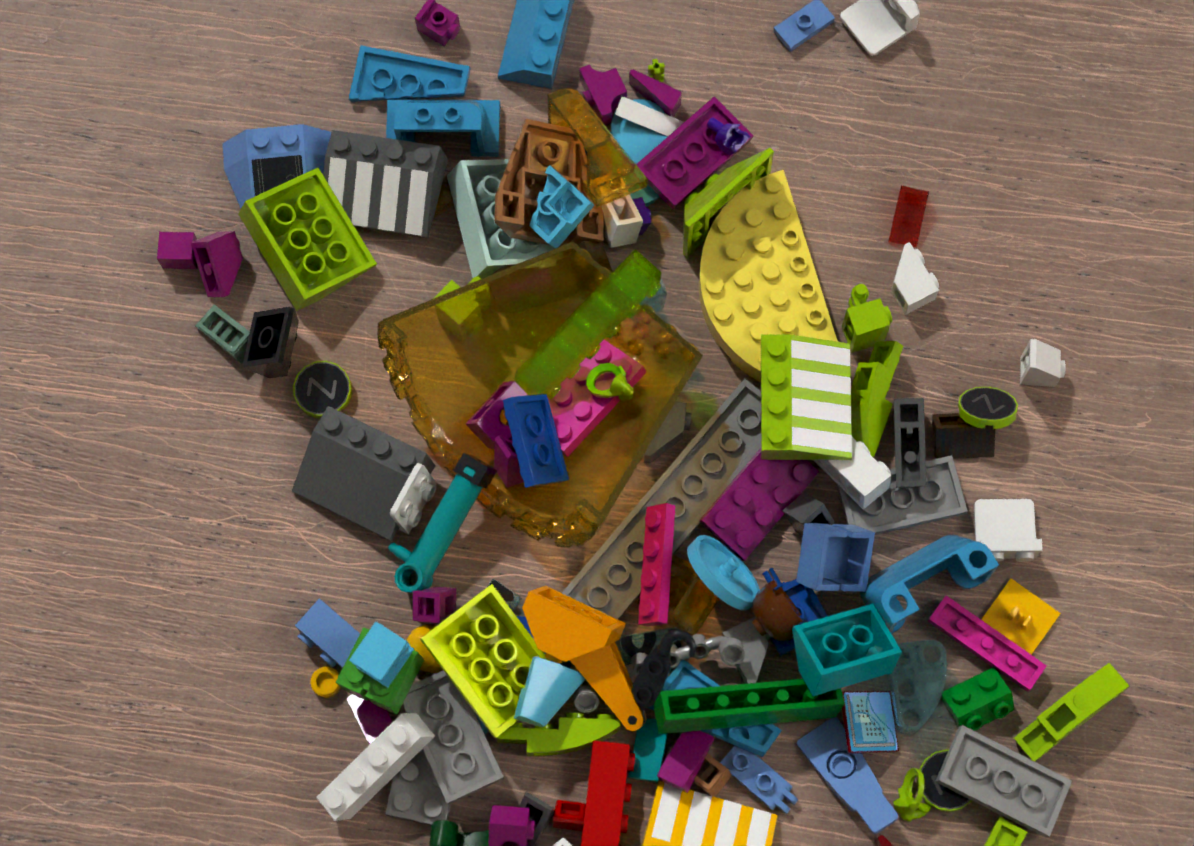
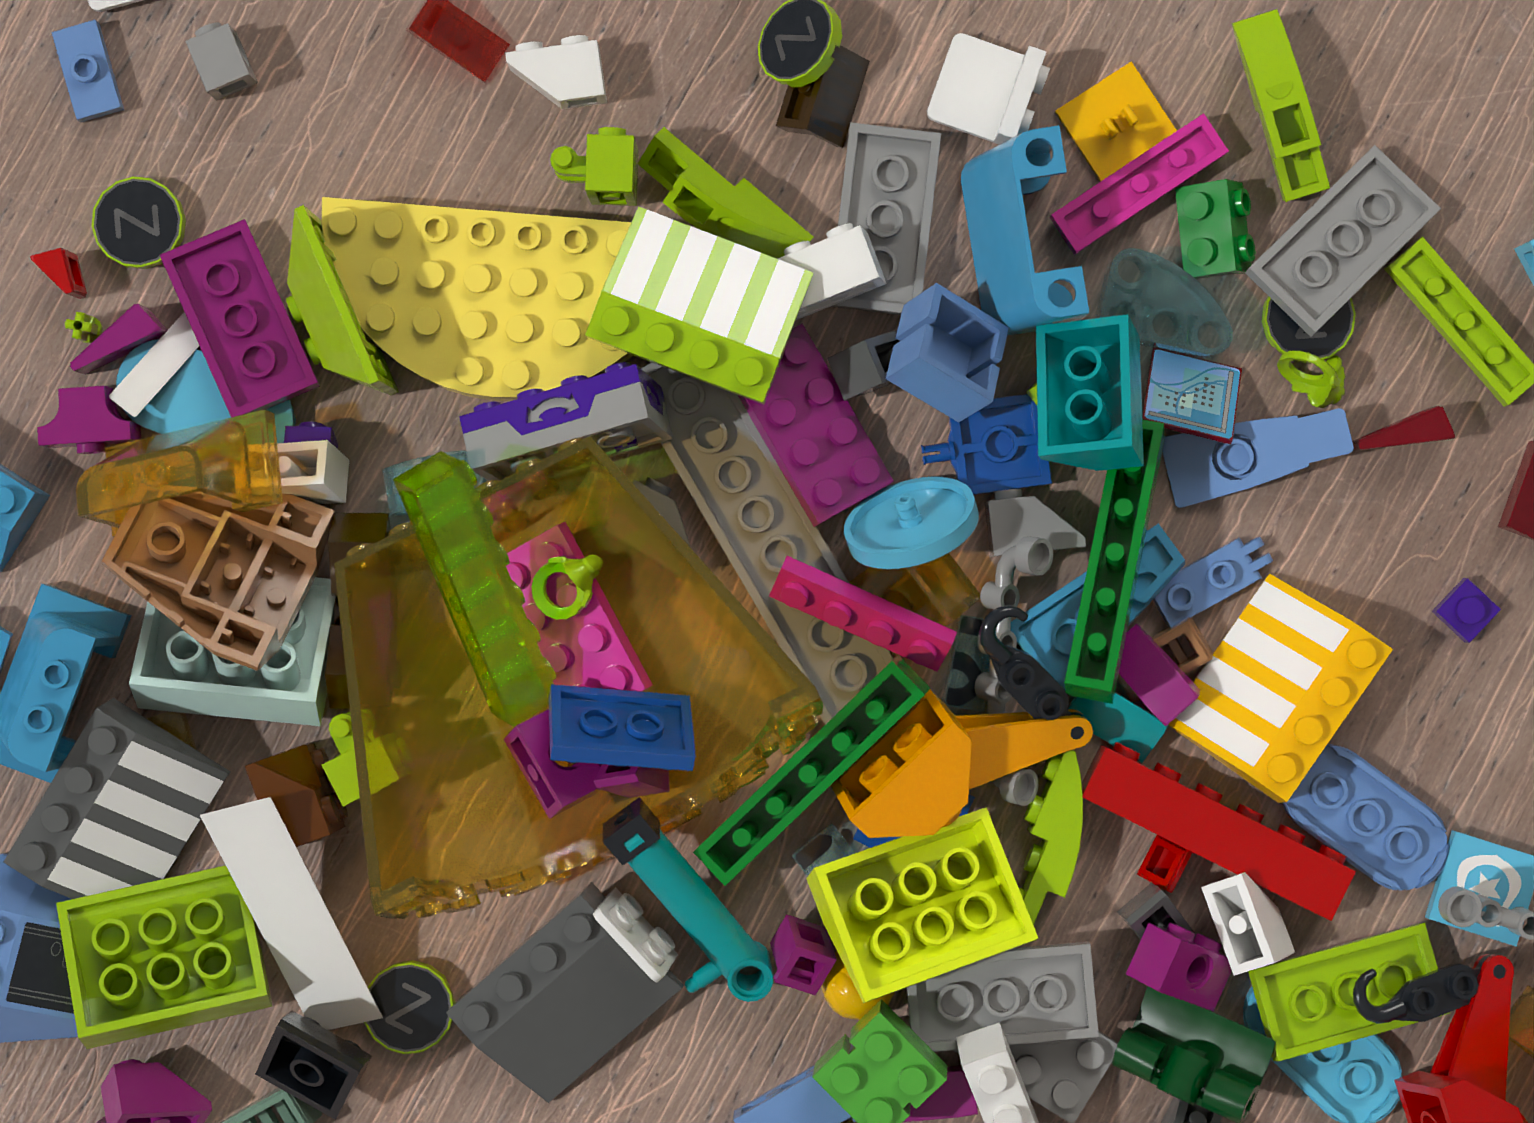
camera: 70 degrees left, 15 degrees up
(356, 297) = (291, 914): none -> white sticker
(381, 654) = (873, 1070): medium azure piece -> none
(425, 274) = (299, 792): none -> reddish brown slope
(545, 691) = (997, 844): medium azure slope -> none
(551, 567) = (812, 770): none -> green brick
(558, 209) = (264, 561): medium azure slope -> none
(684, 49) = (63, 270): none -> red slope
(724, 371) = (616, 408): none -> light grey piece
(728, 136) = (236, 257): dark purple piece -> none
(729, 80) = (138, 222): none -> black tile
(775, 613) = (1000, 468): reddish brown cylinder -> none
(839, 91) = (221, 60): none -> light grey brick
(909, 442) = (814, 177): dark grey slope -> none

